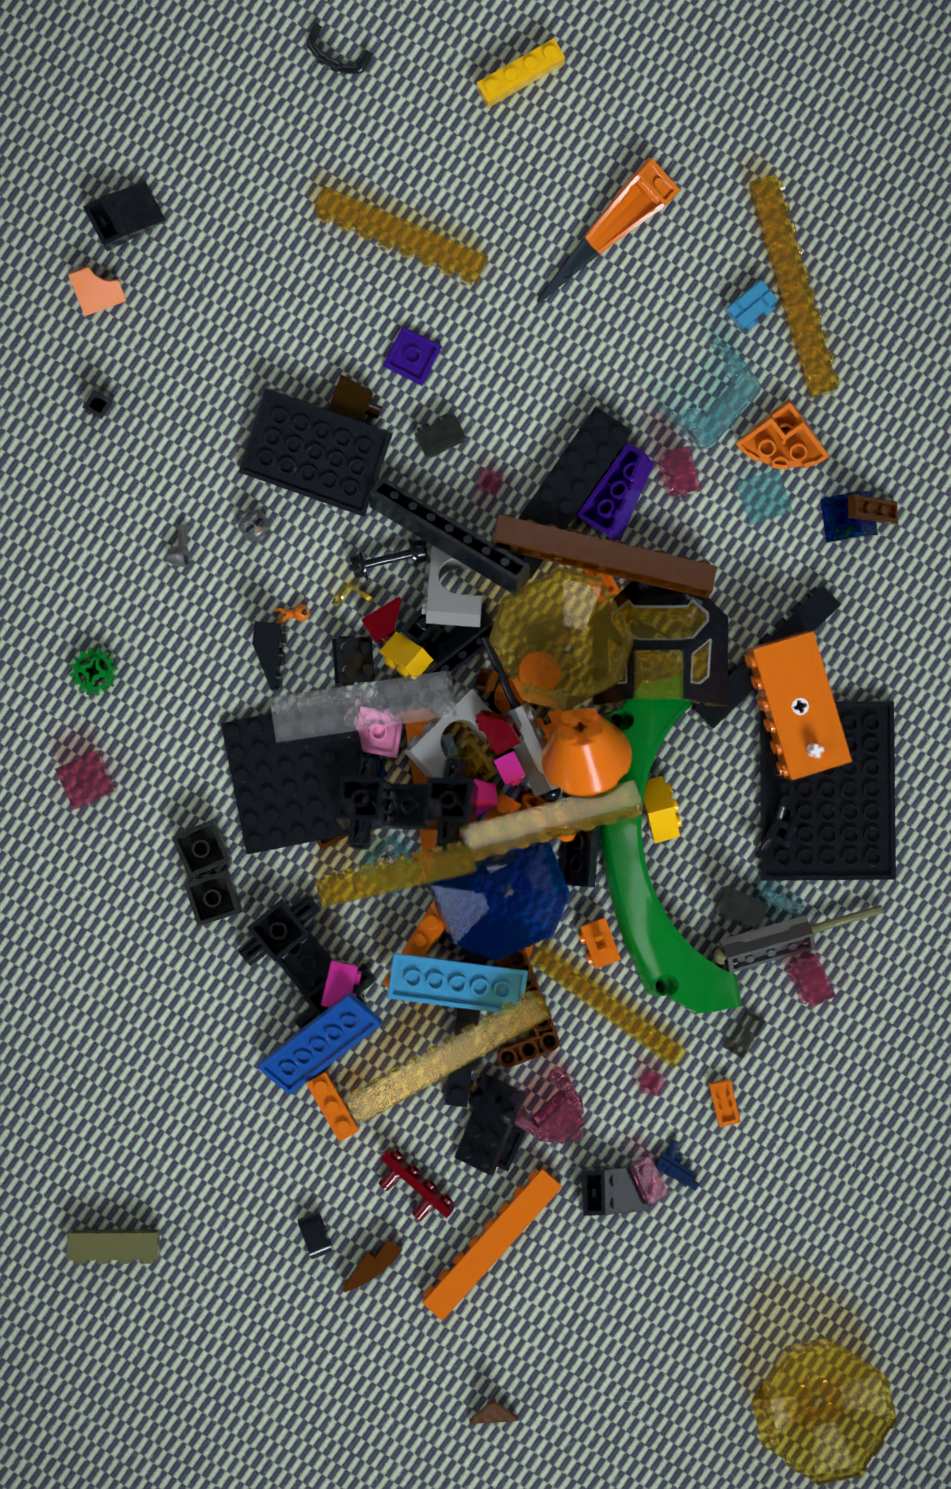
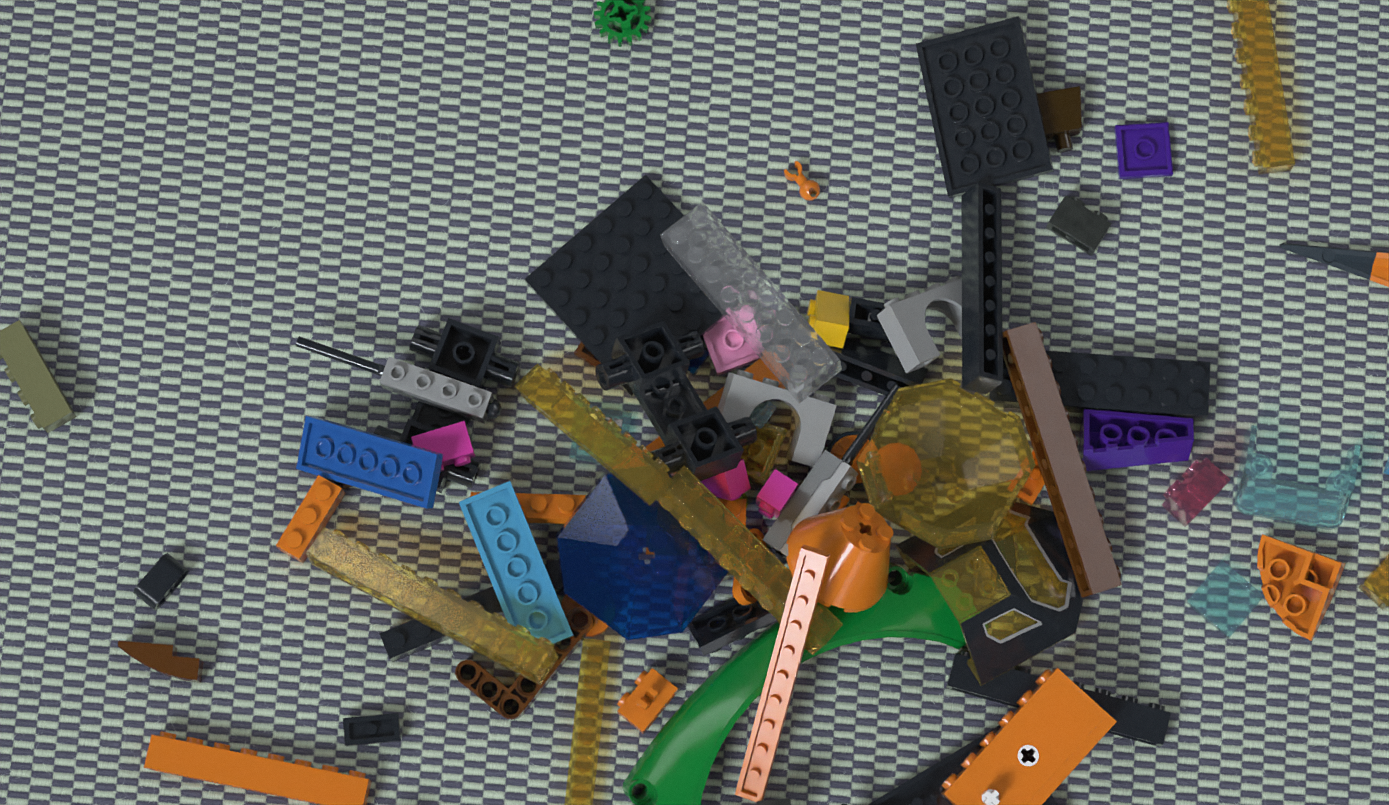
camera: 60 degrees right, 10 degrees down
(86, 780) = (505, 72): clear pink brick -> none
(180, 554) = (795, 34): flat silver bar -> none
(202, 848) = (504, 228): pearl dark grey brick -> none
(213, 897) = (459, 269): pearl dark grey brick -> none
(254, 525) = (870, 90): flat silver head -> none
(268, 644) = (756, 173): black slope -> none
(280, 976) = (419, 383): none -> light grey piece
(338, 598) = (854, 219): clear yellow piece -> none
(353, 660) = (793, 267): black piece -> none
(360, 566) = (895, 220): black piece -> none
(383, 621) = (852, 277): dark red slope -> none
(423, 1186) = (277, 666): dark red plate -> none
(486, 680) = (855, 417): reddish brown tile -> none
(489, 482) = (1063, 303): clear pink plate -> none
(489, 1123) = (386, 695): black hinge -> none
(500, 730) = (810, 457): dark red slope -> none
(560, 1116) = (435, 764): clear pink torso -> none
(643, 842) = (782, 673): none -> plate
(661, 810) = (827, 680): yellow brick -> none
(837, 521) = (1261, 700): clear blue slope -> none
(872, 509) = (1284, 717): reddish brown tile -> none

